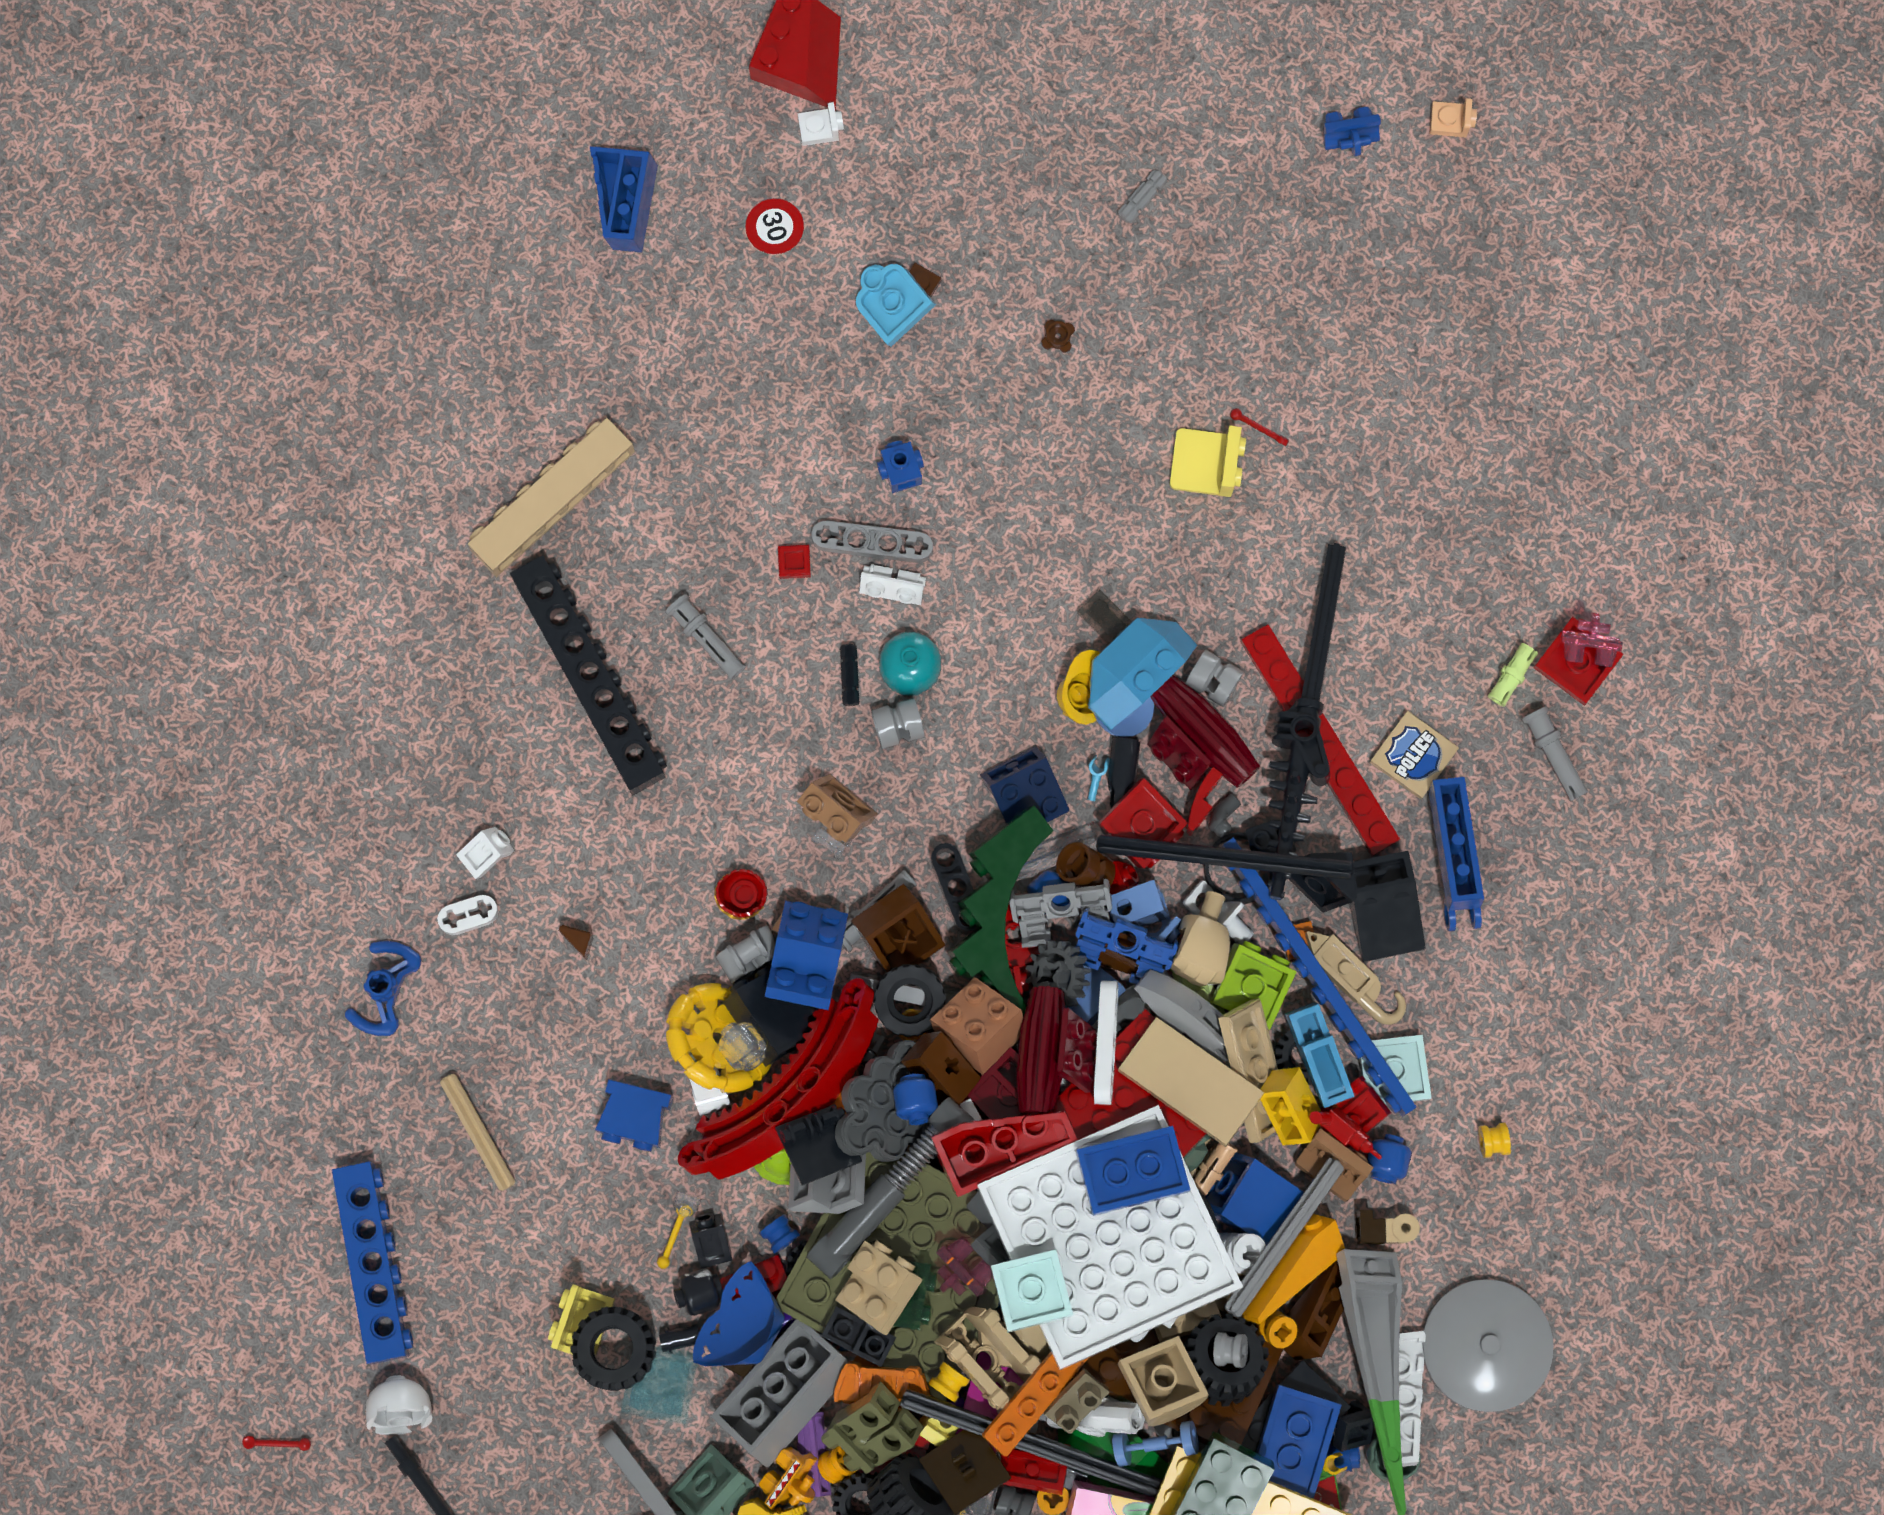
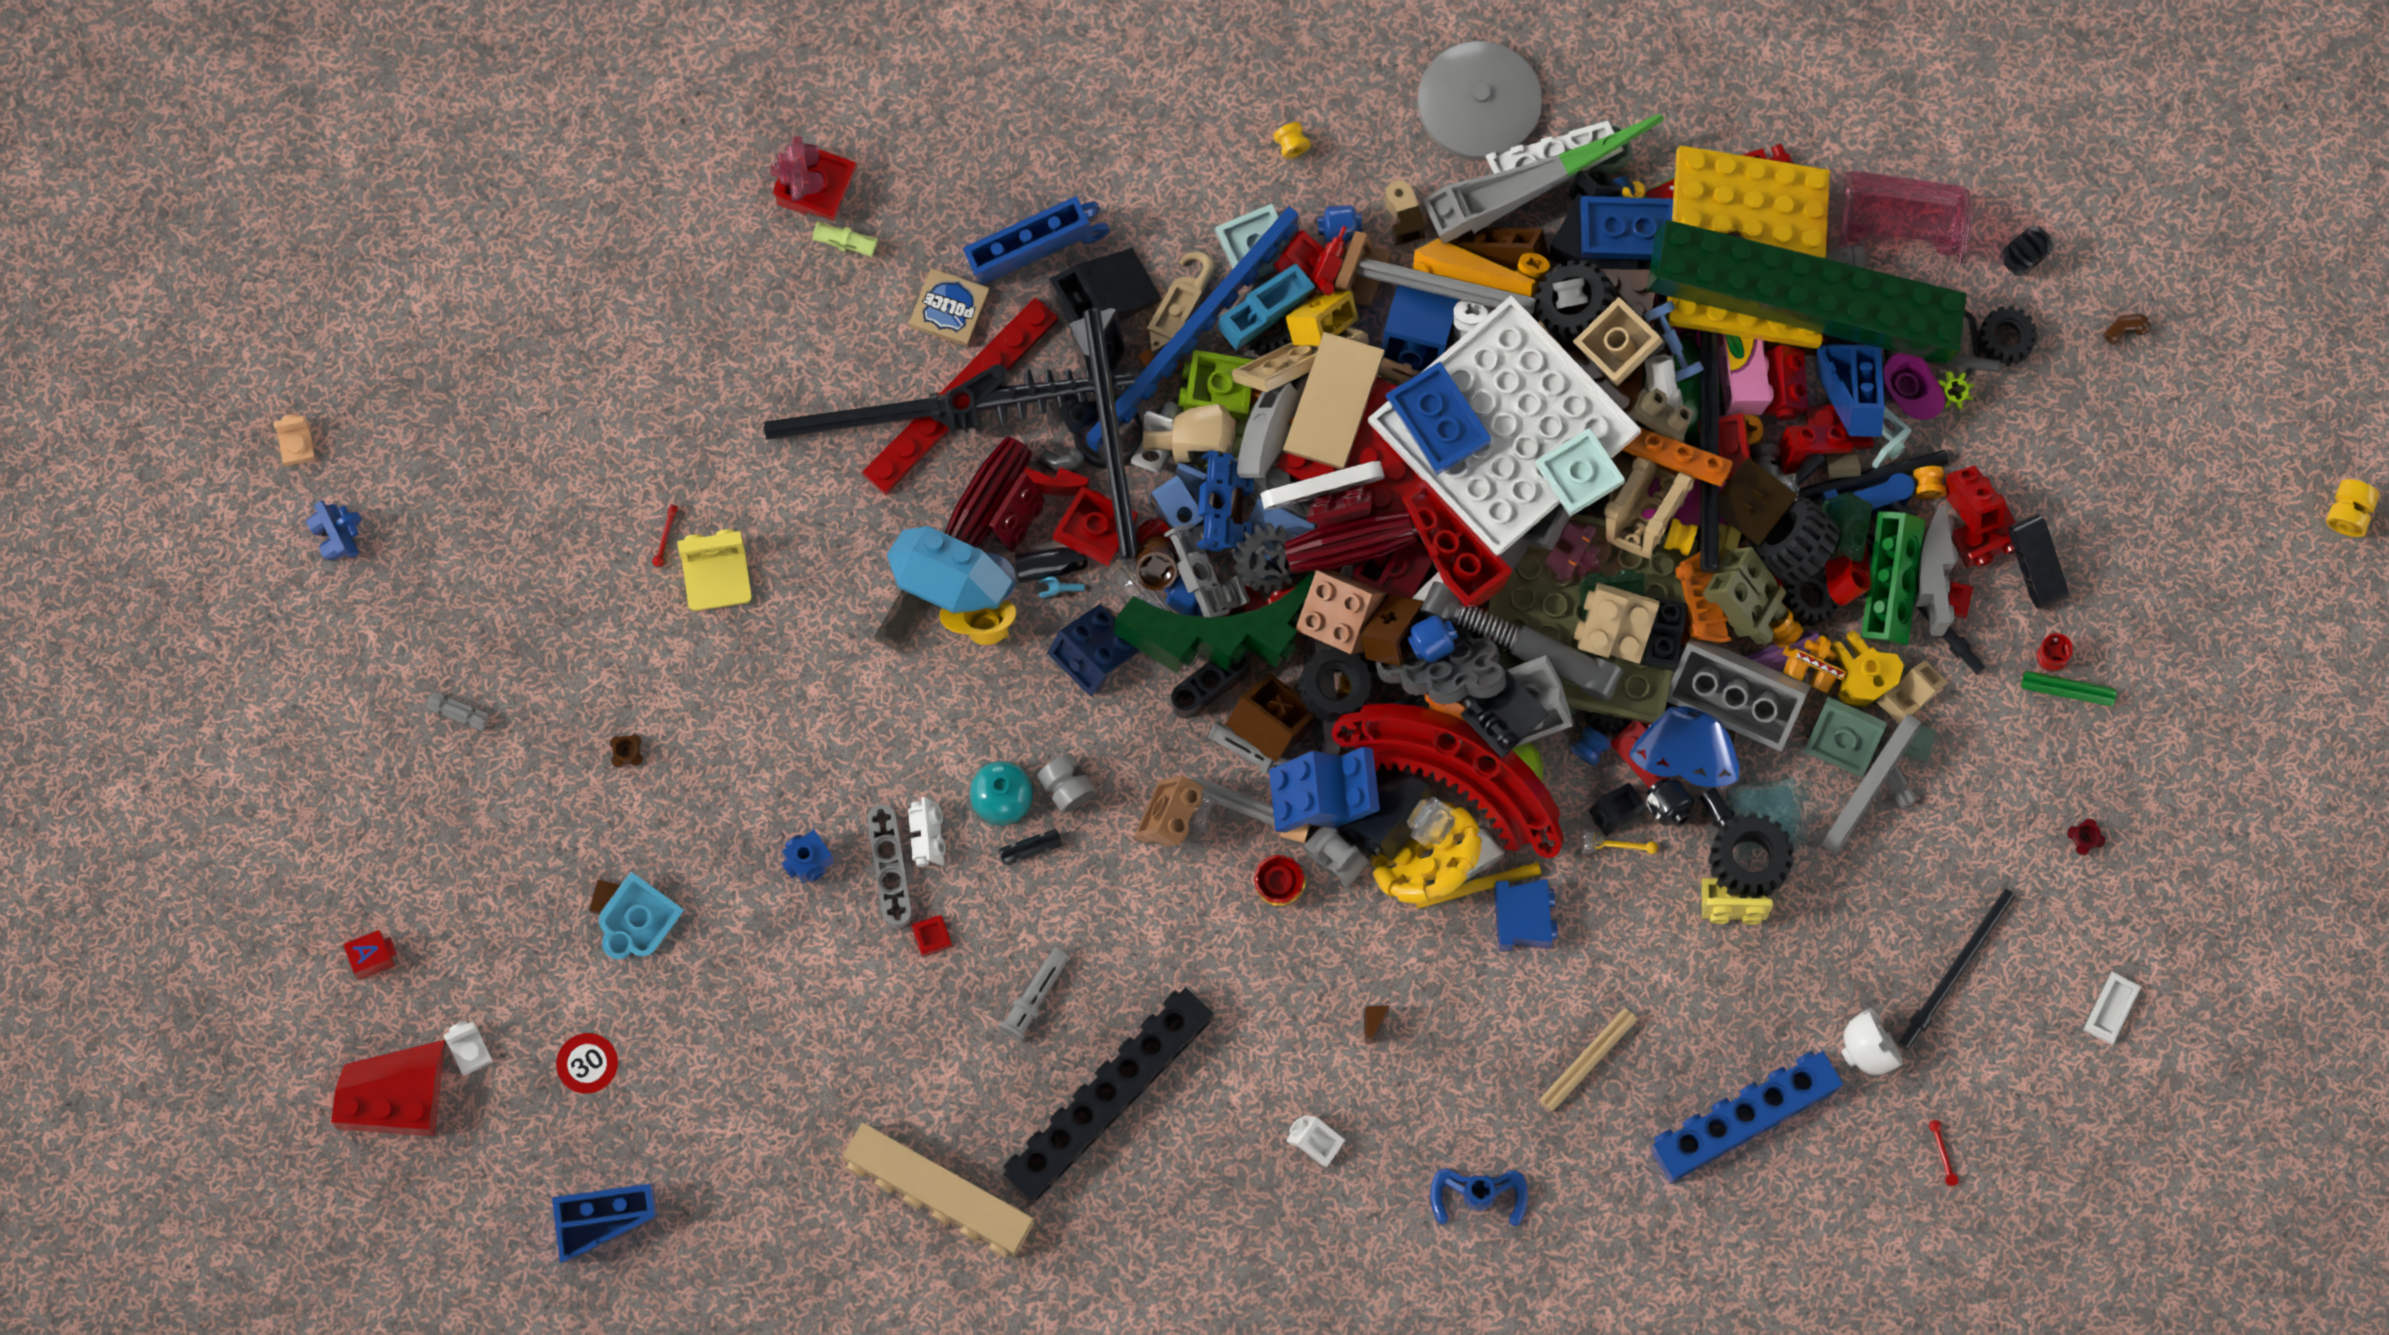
camera: 105 degrees left, 5 degrees down
(465, 907) = (1388, 1133): white beam -> none
(679, 1104) = (1487, 883): none -> yellow bar
(837, 874) = (1238, 801): none -> light grey axle
(933, 61) = (370, 954): none -> red brick
(1206, 669) = (931, 503): light grey wheel -> none
(1549, 739) = (899, 190): light grey pin -> none

